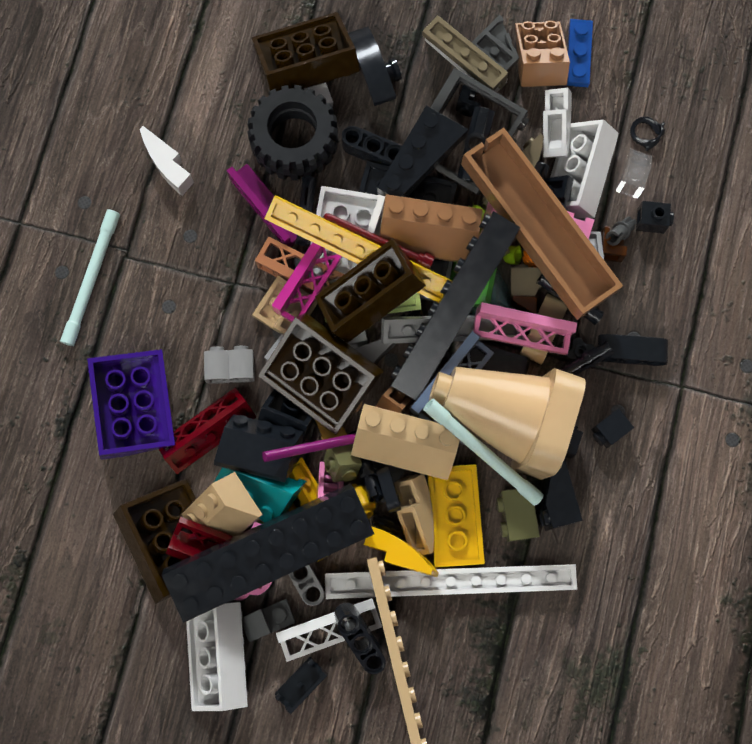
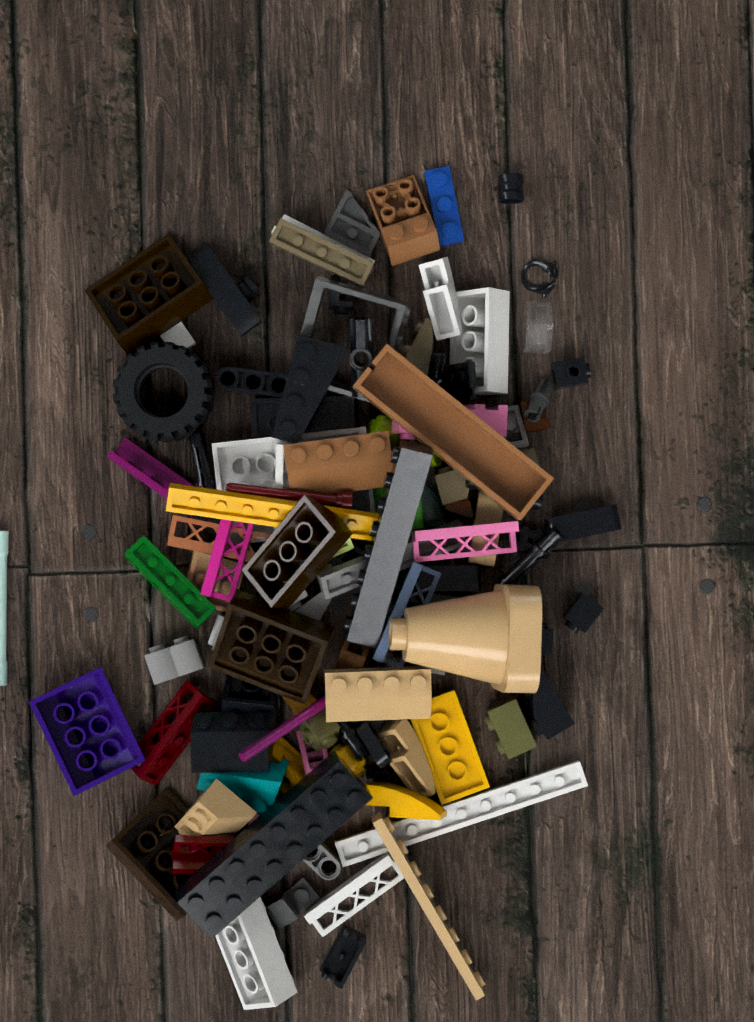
camera: 20 degrees left, 10 degrees up
(167, 162) = (38, 461): white slope -> none
(246, 295) = (169, 582): none -> green fence
(363, 648) = (387, 897): black beam -> none
(444, 418) = (410, 667): light aqua piece -> none
(642, 48) = (510, 188): none -> black wheel

